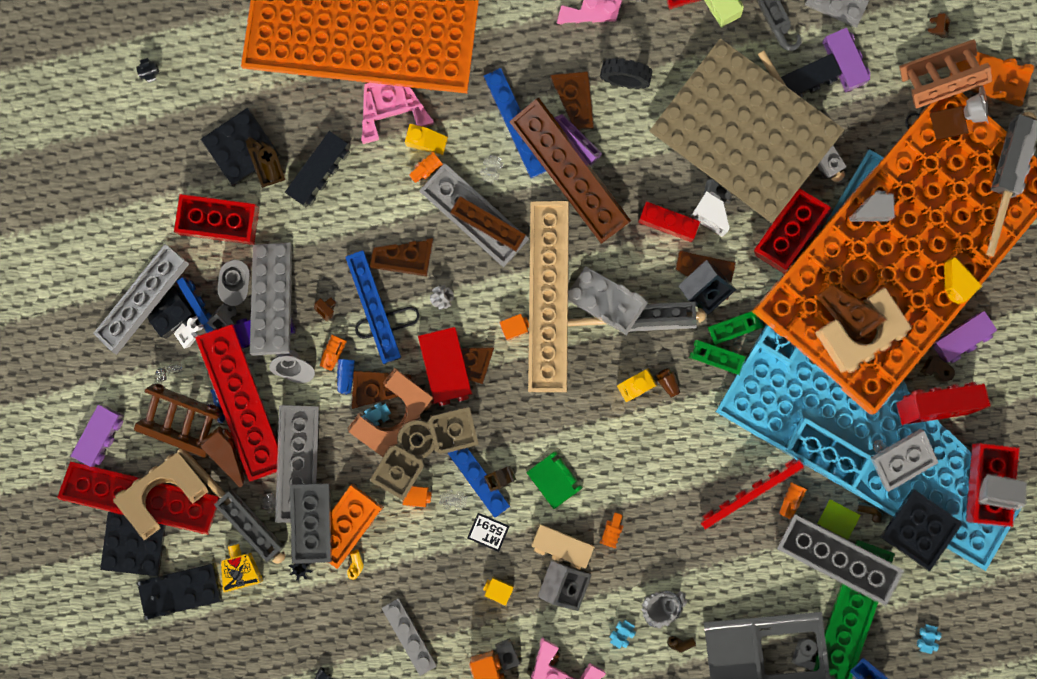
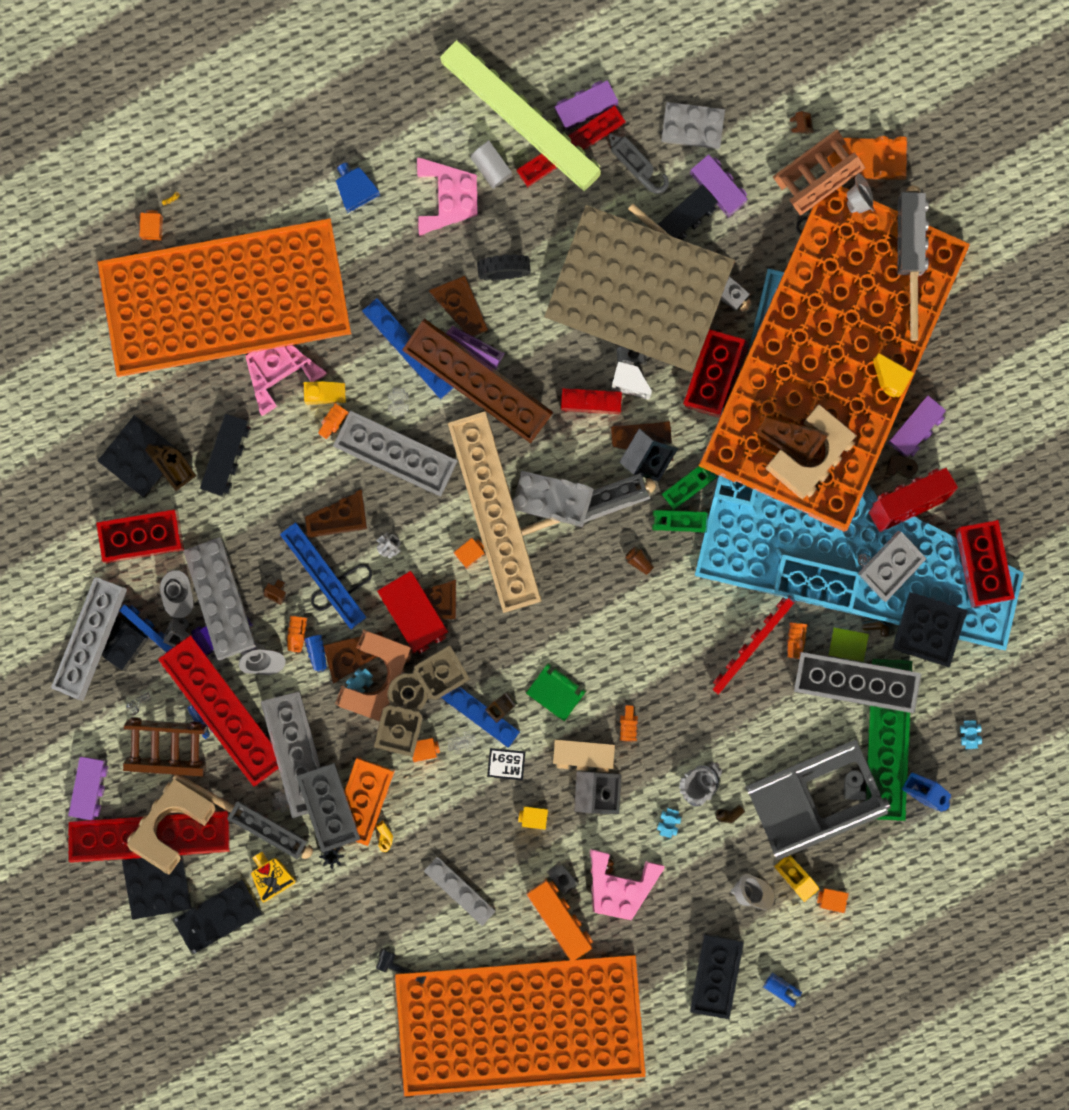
camera: 20 degrees left, 0 degrees up
(147, 70) = (23, 407): black gear -> none
(187, 332) = (145, 657): white plate -> none
(222, 450) = (218, 763): reddish brown slope -> none
(488, 224) = (412, 458): reddish brown plate -> none
(637, 385) = (609, 572): yellow torso -> none
(876, 208) = (788, 328): light grey slope -> none
(949, 123) = (837, 220): reddish brown sticker -> none
(1003, 492) = (993, 568): light grey brick -> none

